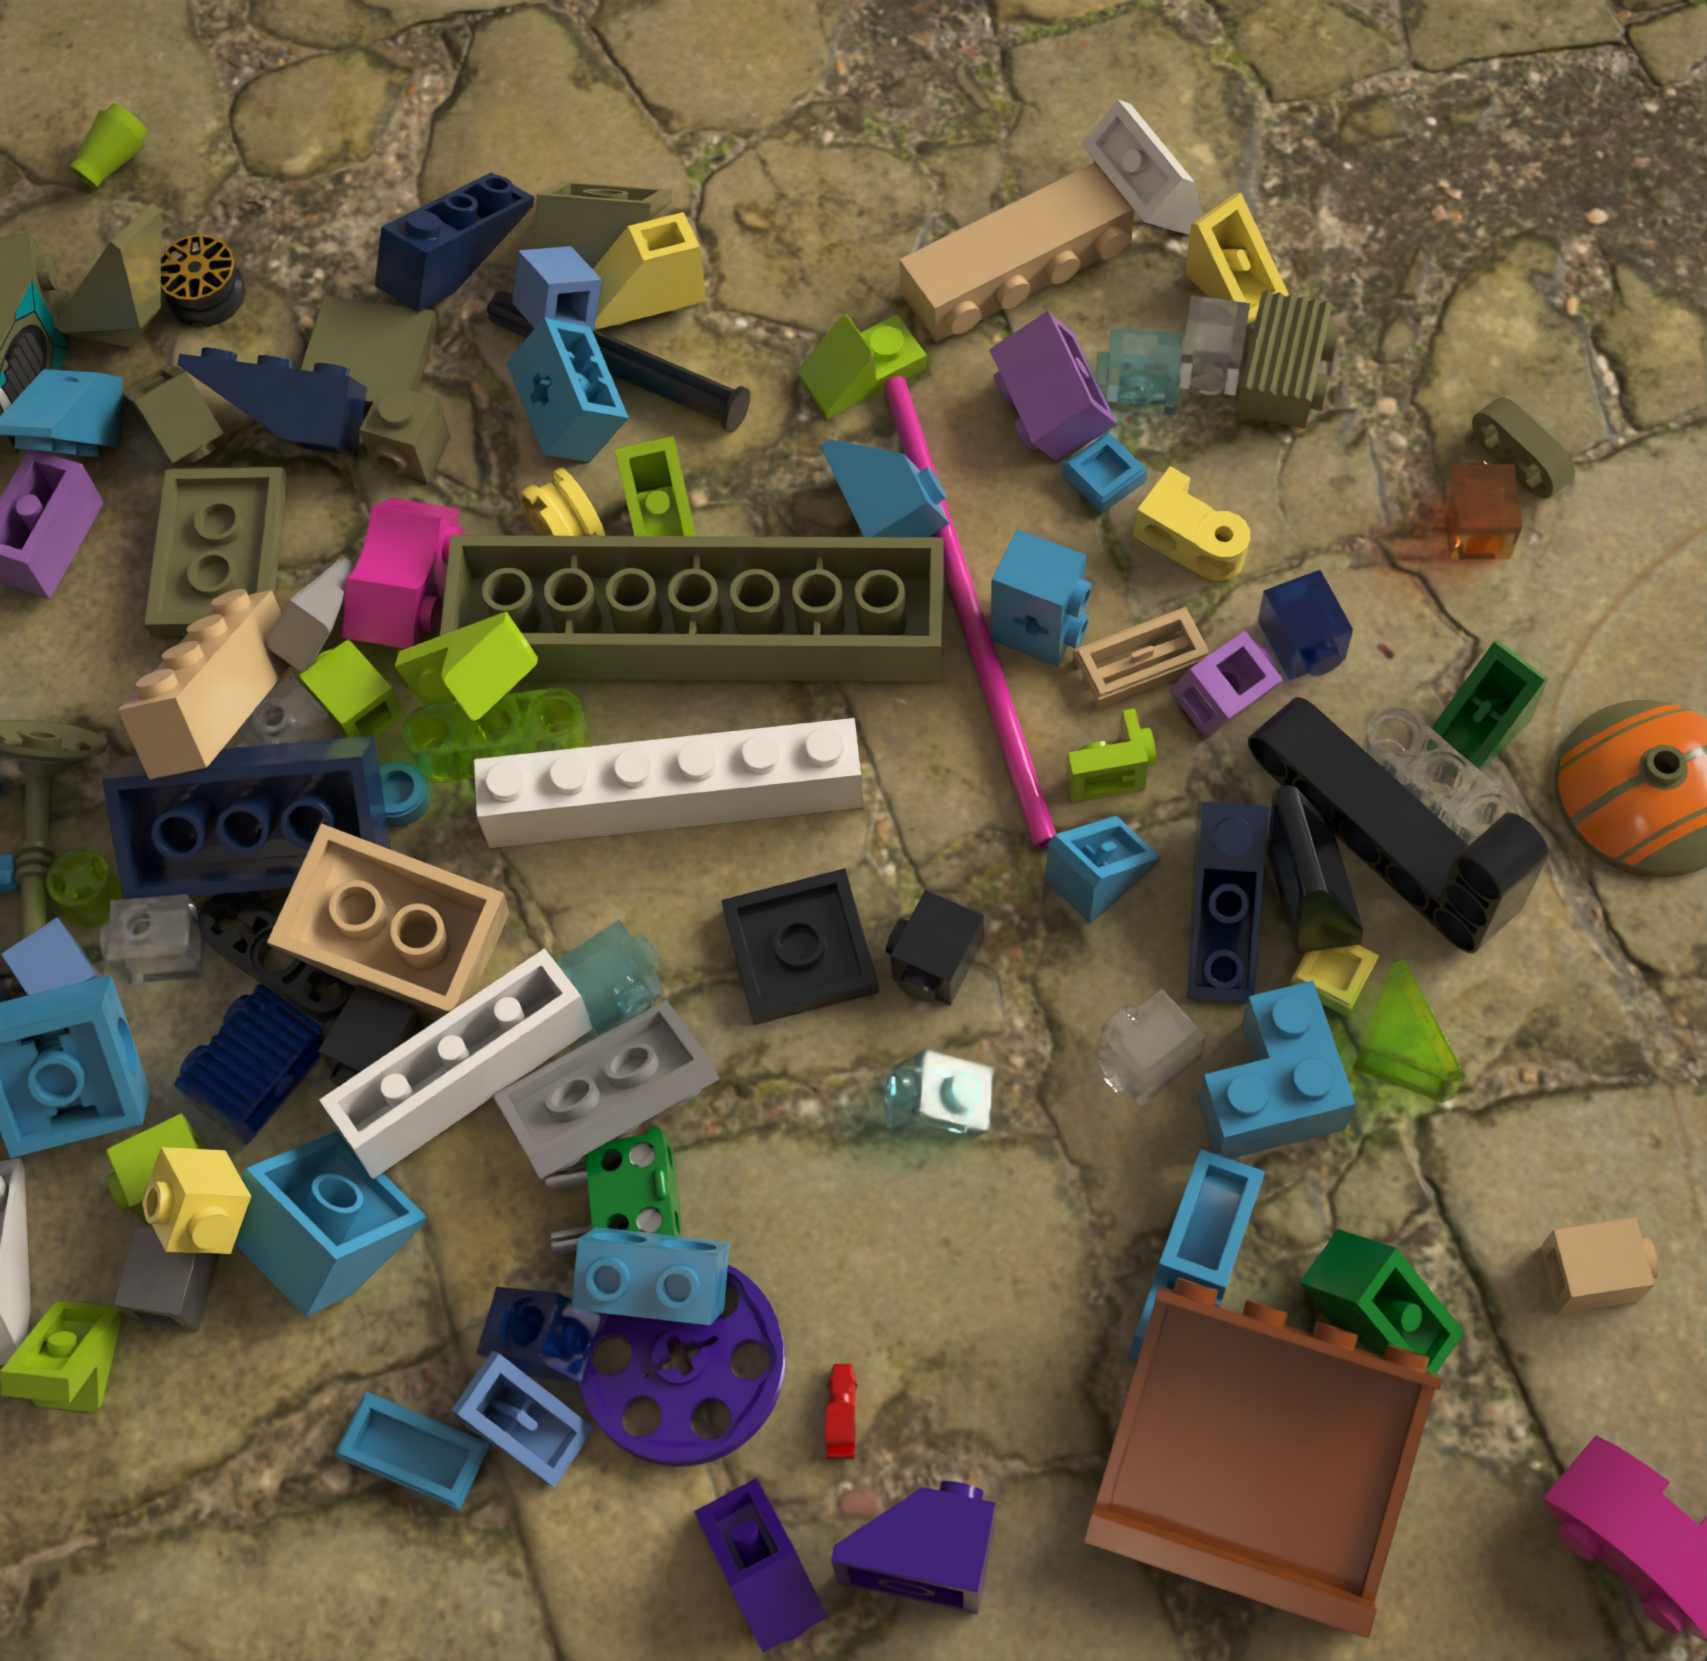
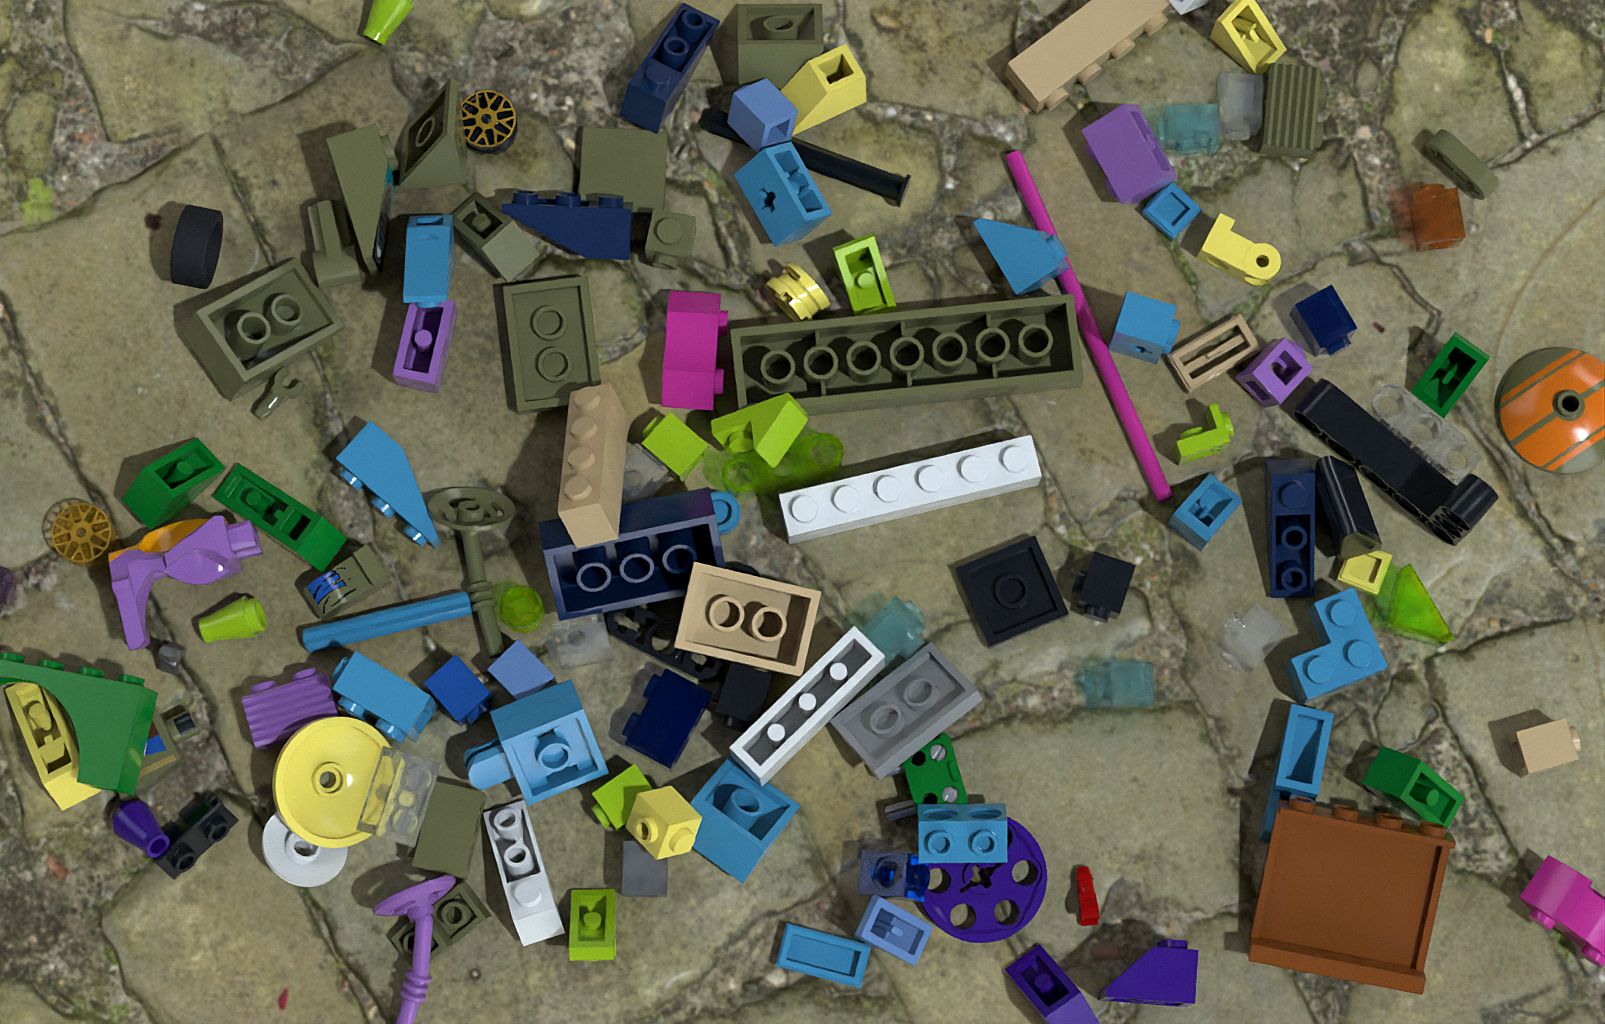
camera: 15 degrees left, 15 degrees up
(310, 617) = (644, 397): light grey slope -> none
(855, 364) = (986, 141): lime slope -> none

